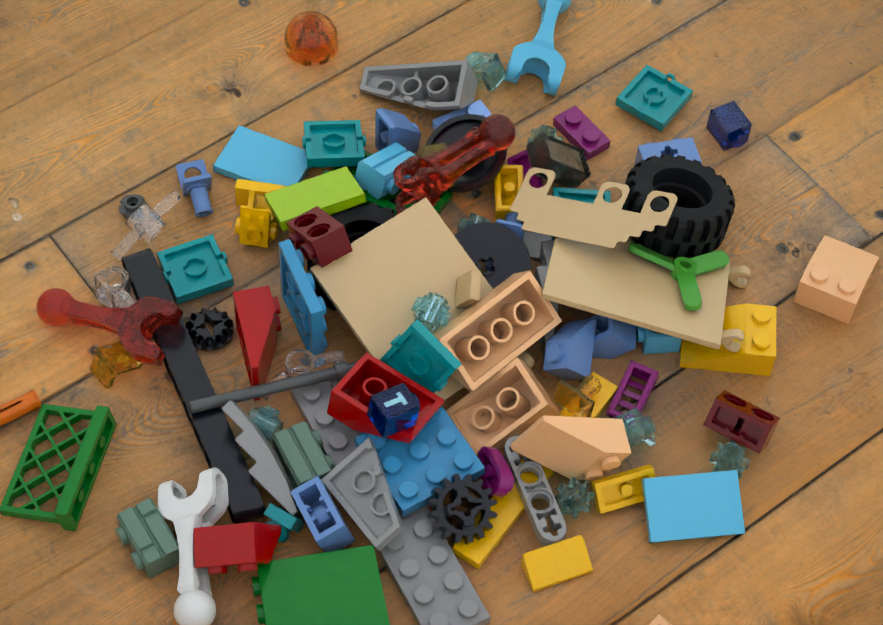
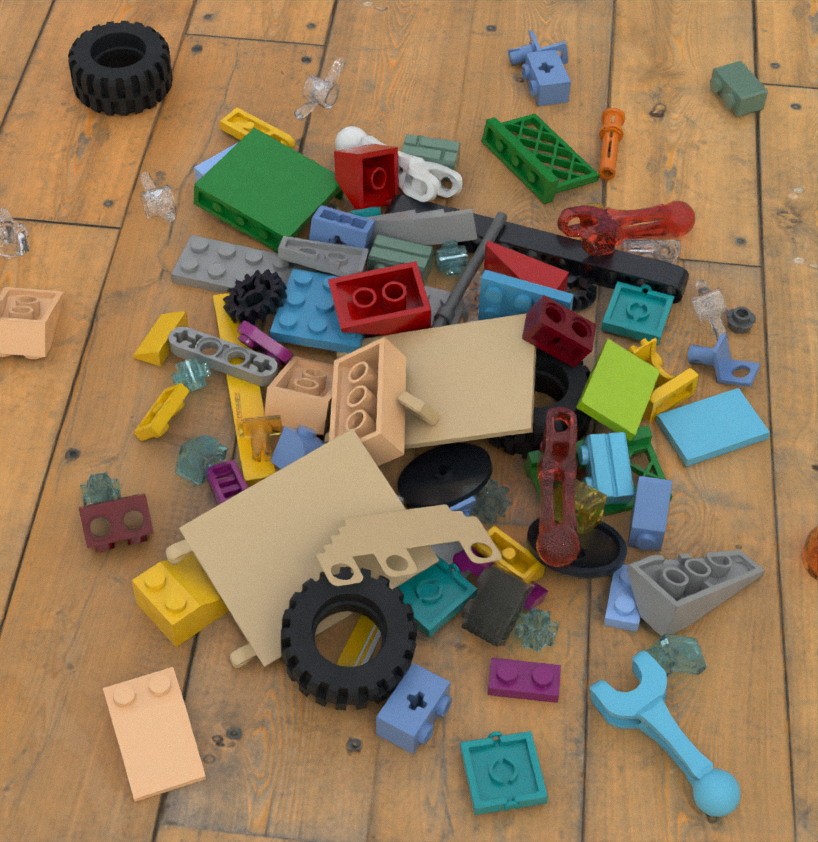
camera: 135 degrees right, 5 degrees down
(333, 143) = (685, 464): teal plate -> none
(393, 410) = (355, 271): clear blue brick -> none
(421, 357) = (398, 328): teal plate -> none
(432, 311) = (422, 368): clear light blue gear -> none
(575, 445) = (213, 377): light nougat slope -> none
(684, 270) = (277, 601): bright green piece -> none
(693, 506) = (97, 437): medium azure tile -> none
(729, 126) = (401, 803): clear blue brick -> none

